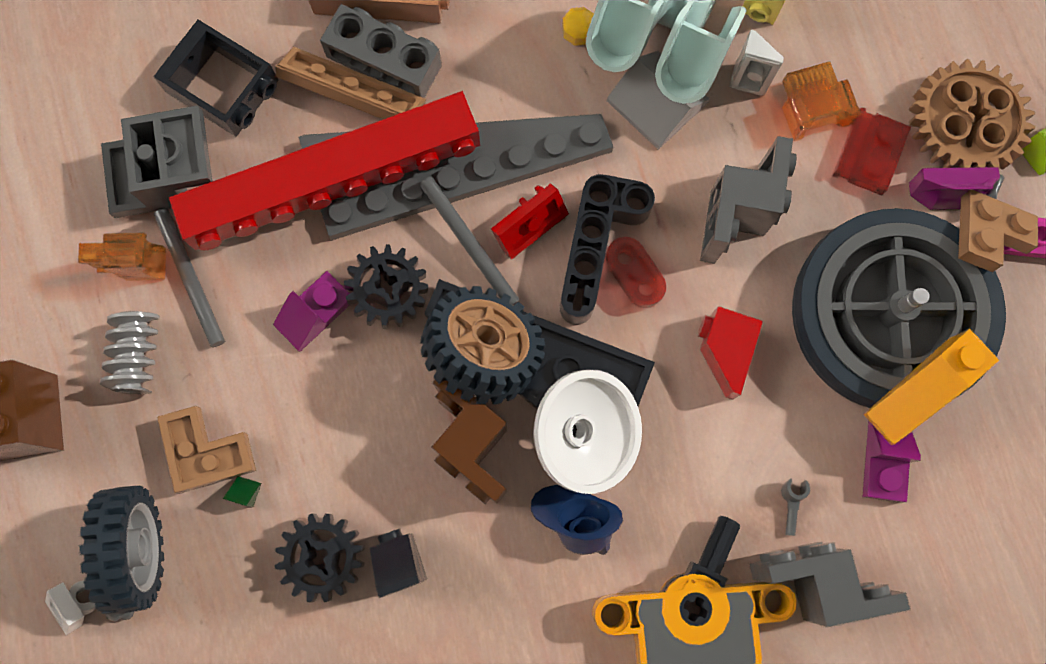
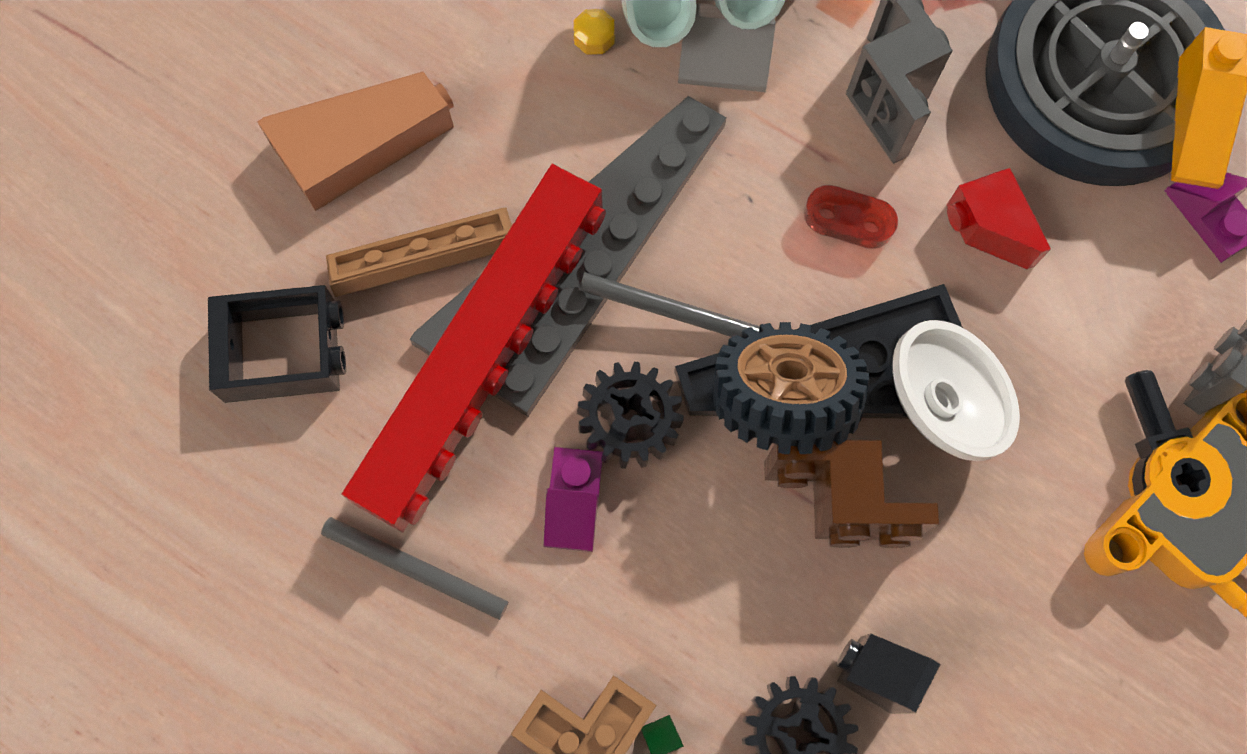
camera: 40 degrees left, 5 degrees down
(126, 256) = (336, 596): clear orange piece -> none
(128, 351) = (422, 693): light grey piece -> none
(155, 160) = (287, 473): dark grey bracket -> none
(390, 67) = (409, 212): dark grey brick -> none
(530, 220) = (711, 243): red plate -> none
(580, 519) = (1012, 485): dark blue piece -> none
(594, 249) = (800, 223): black beam -> none
(793, 503) = (1169, 311): dark grey hand -> none

